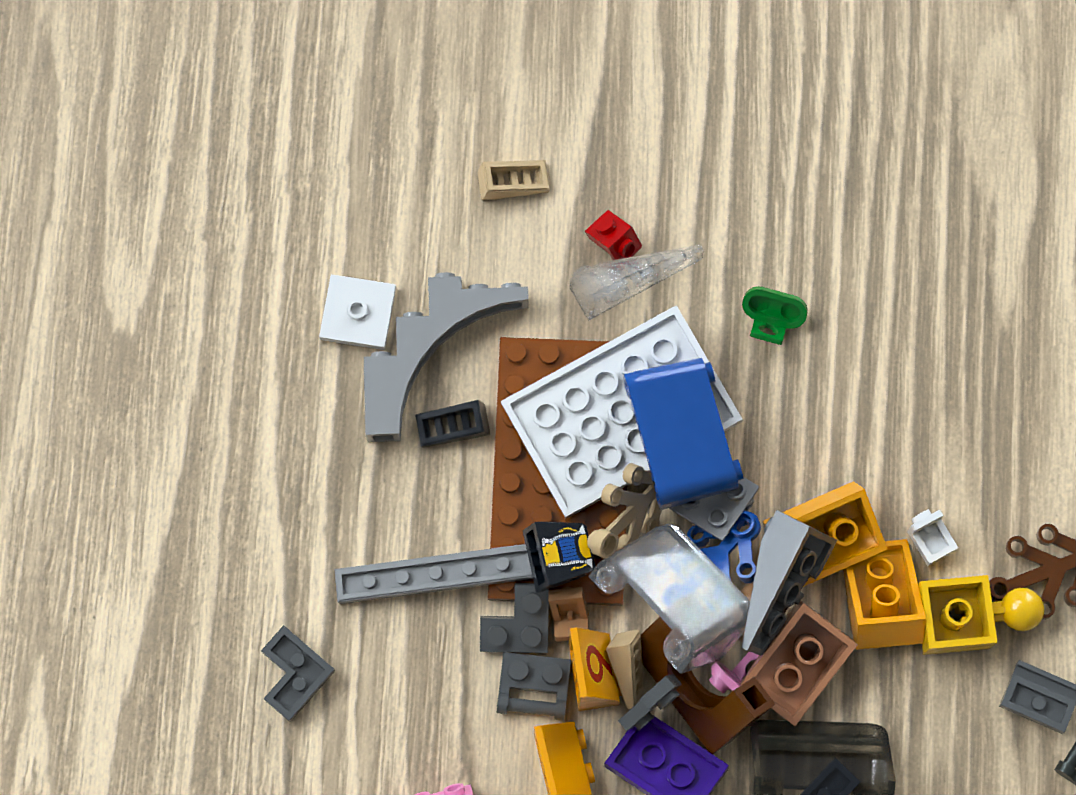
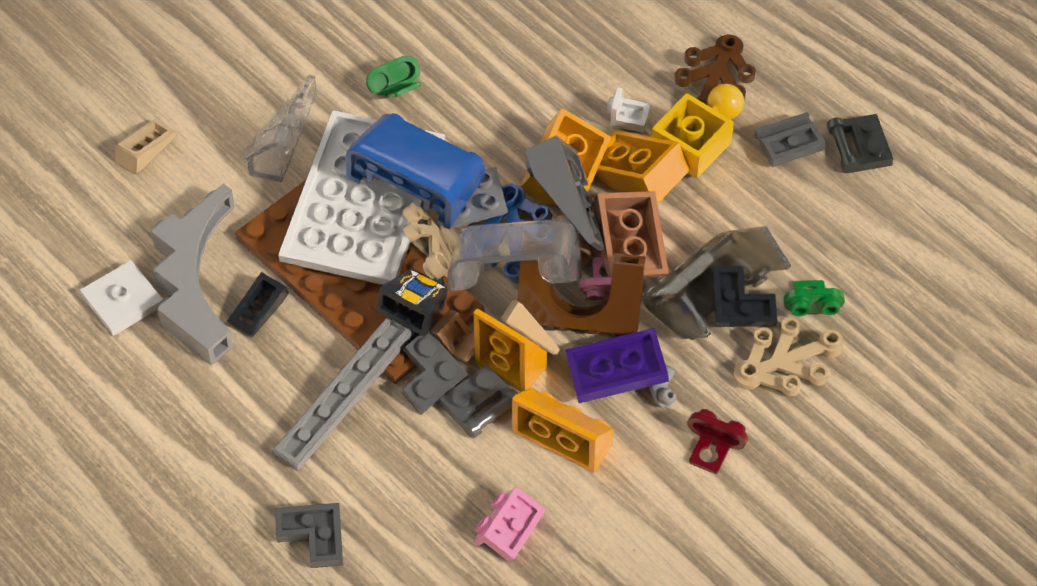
camera: 45 degrees left, 20 degrees down
(614, 236) = (245, 119): red bracket -> none
(660, 695) = (570, 317): dark grey plate -> none

